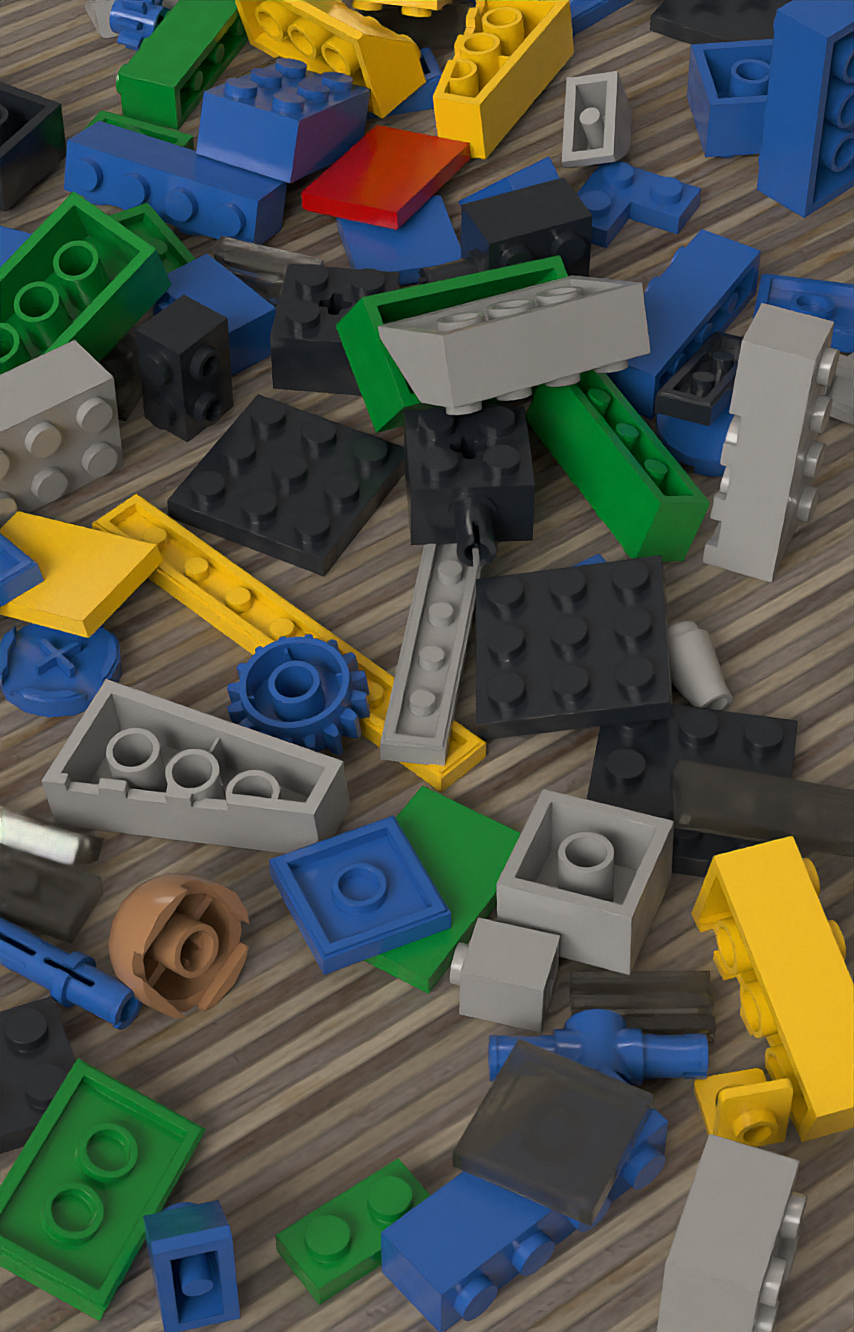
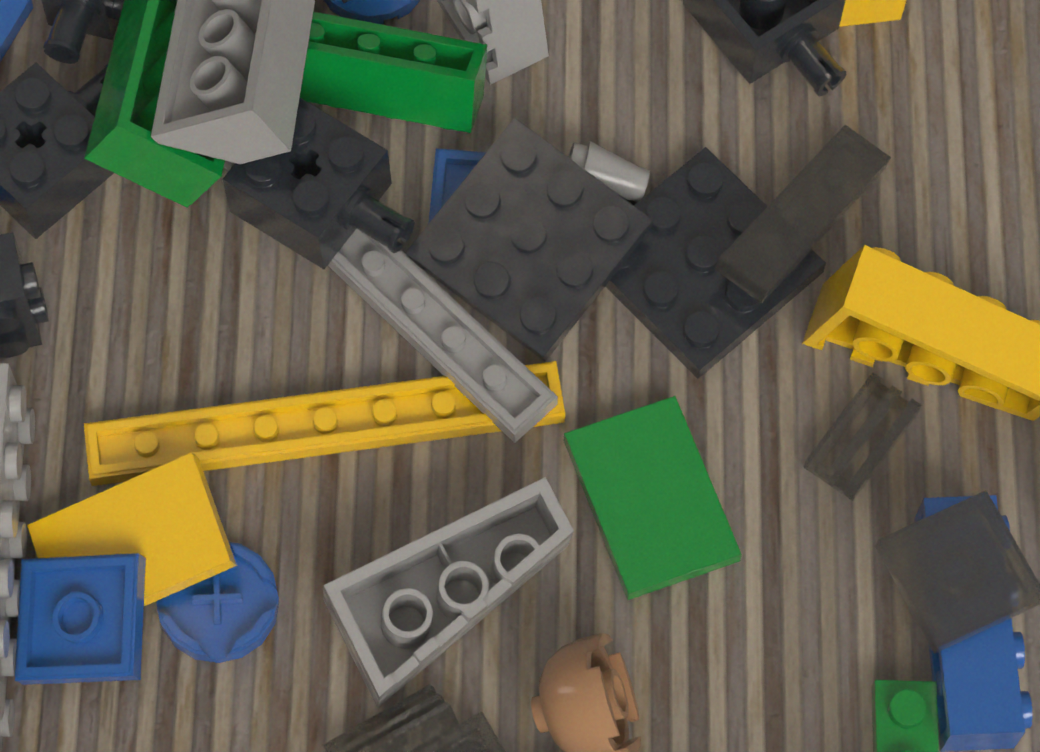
camera: 55 degrees left, 20 degrees up
(289, 484) = (165, 304): black plate -> none
(301, 693) = (418, 426): blue gear -> none
(359, 894) = (638, 547): blue tile -> none
(506, 974) = (781, 501): light grey brick -> none
(588, 877) = (756, 393): light grey brick -> none
(603, 1039) = (890, 495): blue pin -> none
(747, 1106) = (1012, 439): yellow bracket -> none

